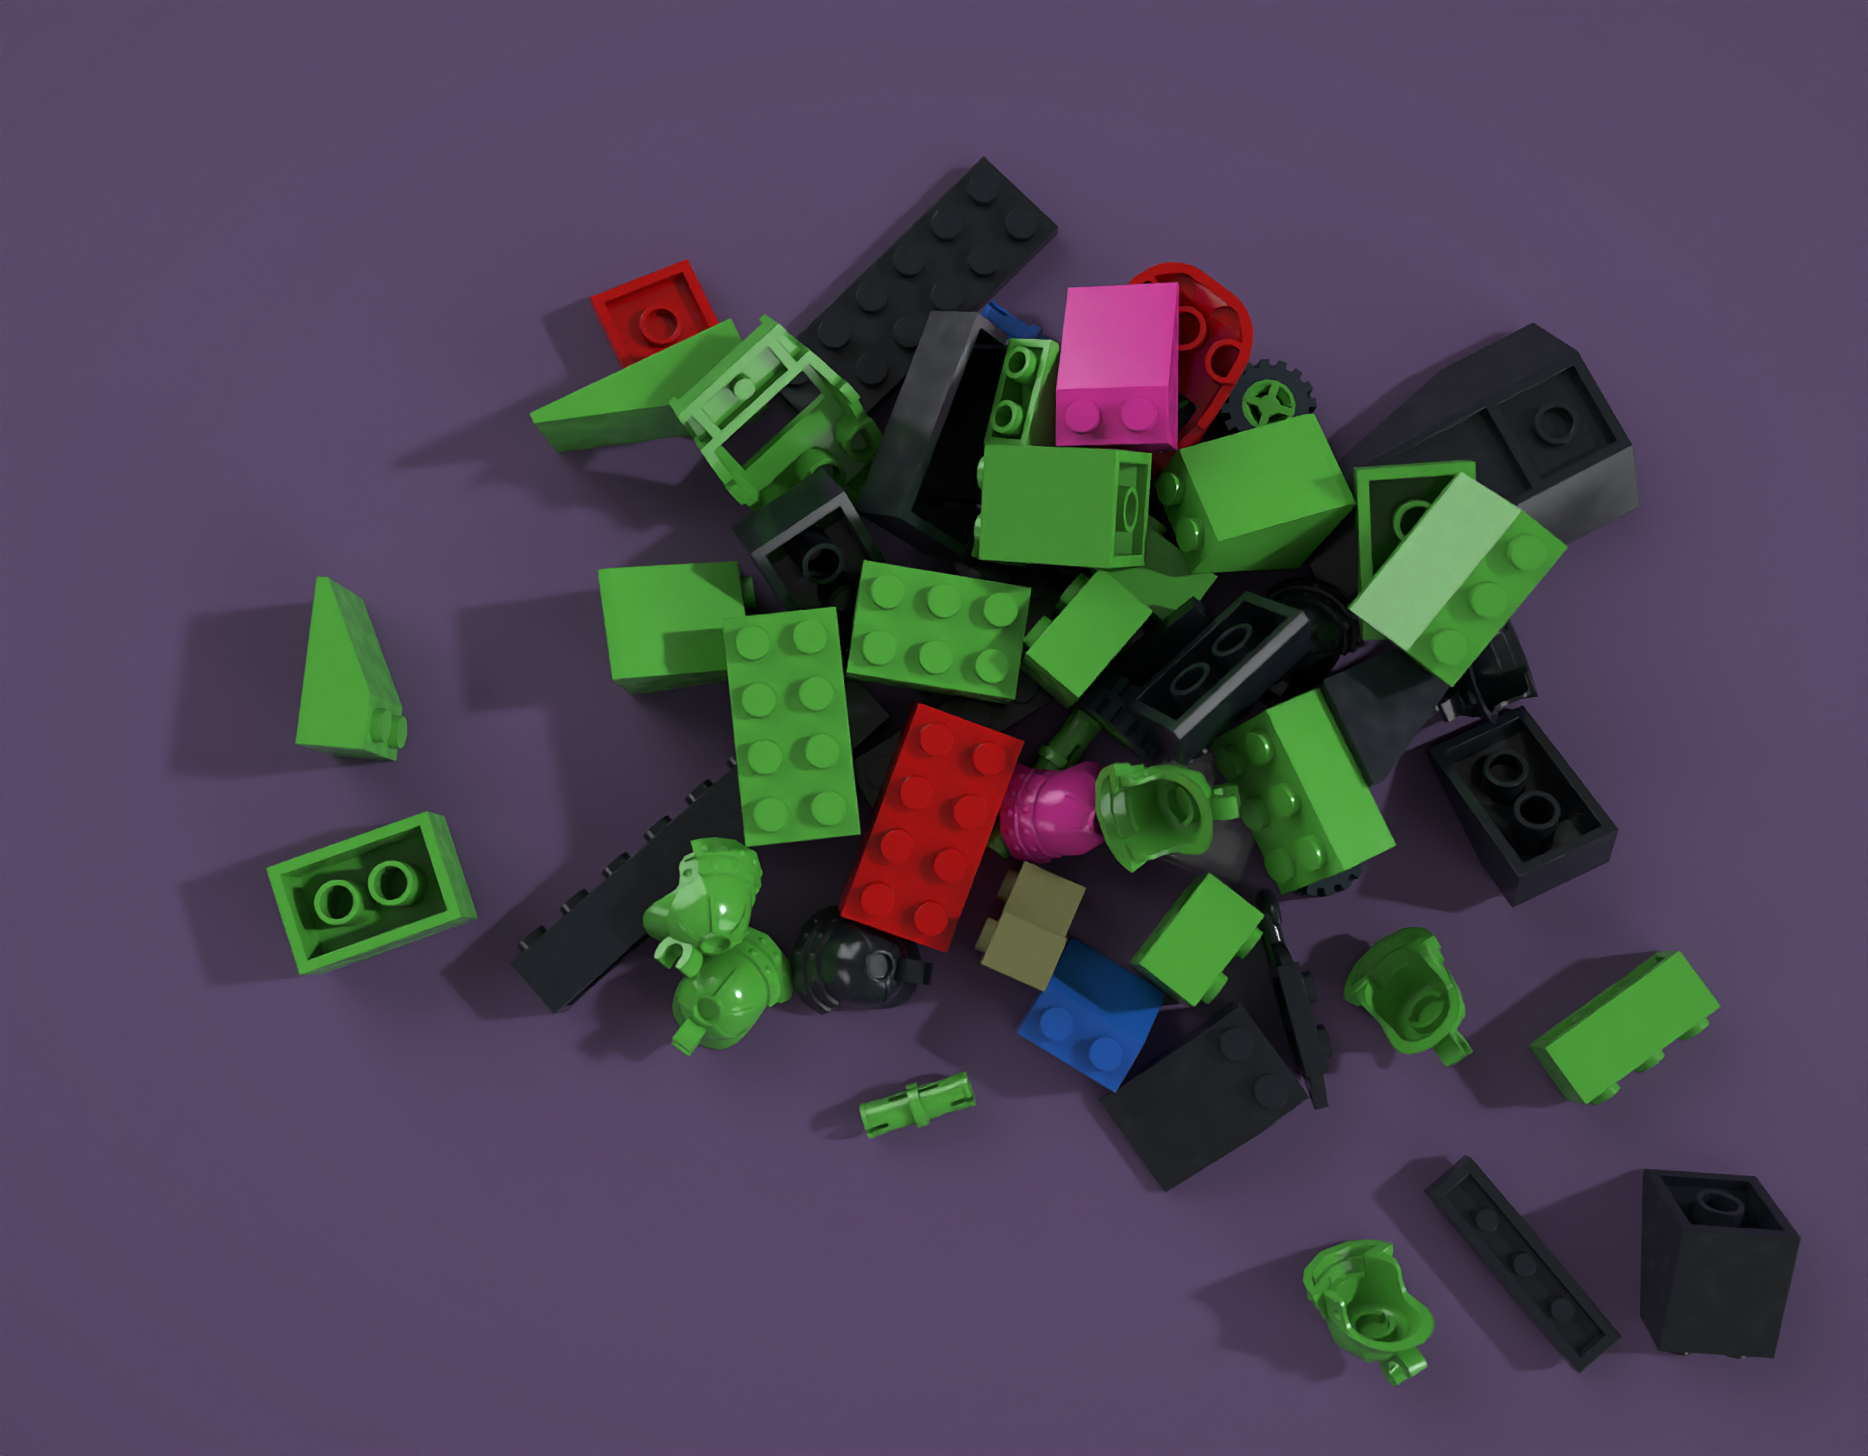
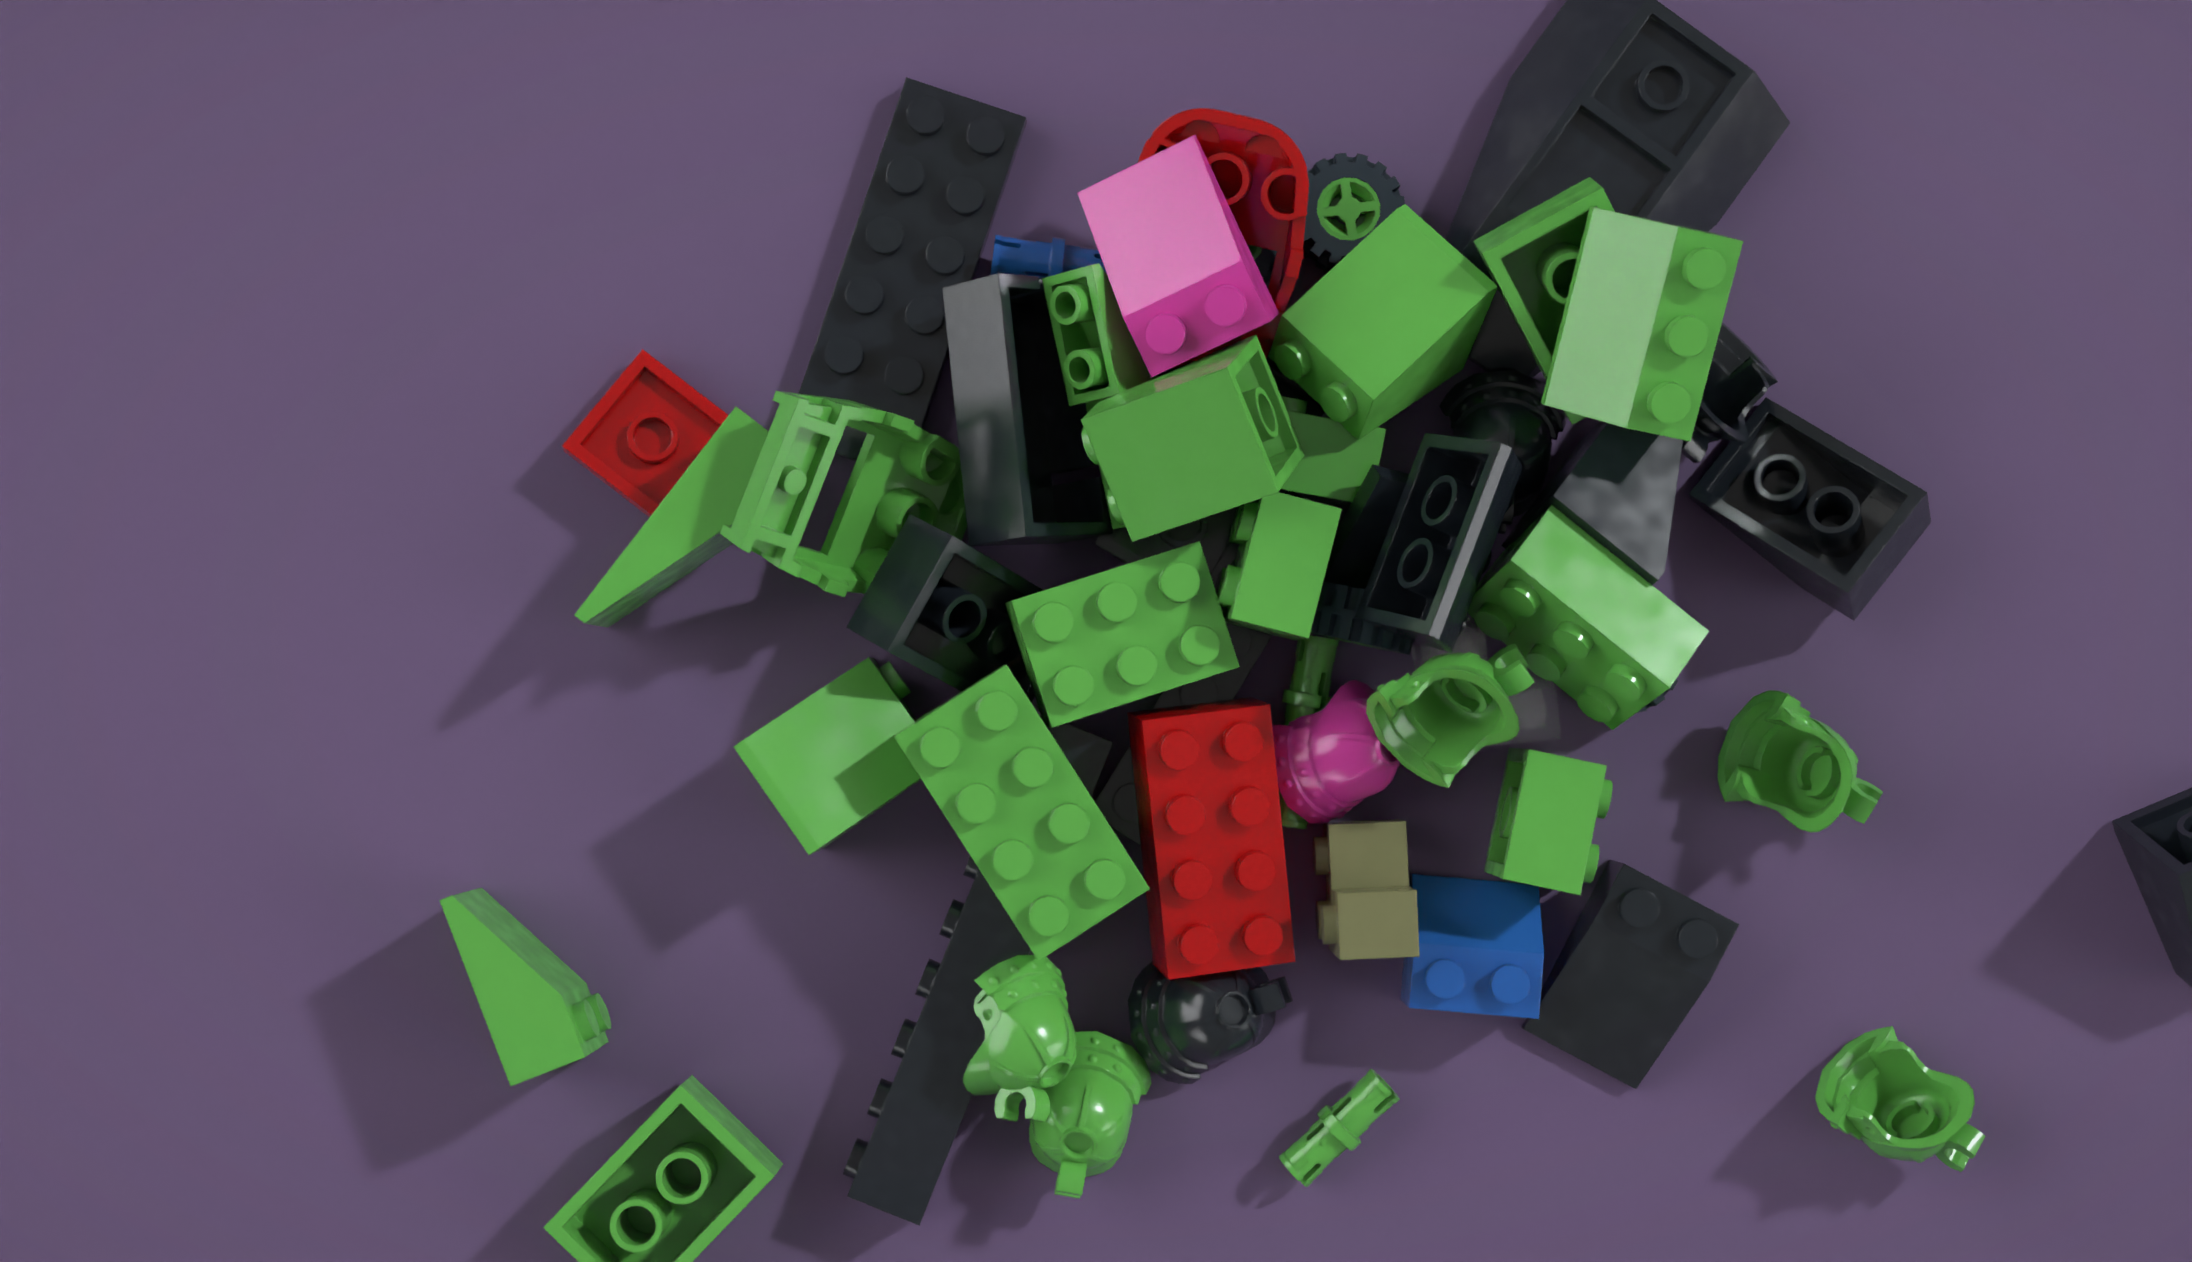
camera: 30 degrees left, 5 degrees up
(1294, 994) = (1672, 822): black plate -> none
(1522, 1264) = (2032, 981): black plate -> none
(1625, 1028) = (2026, 688): bright green brick -> none

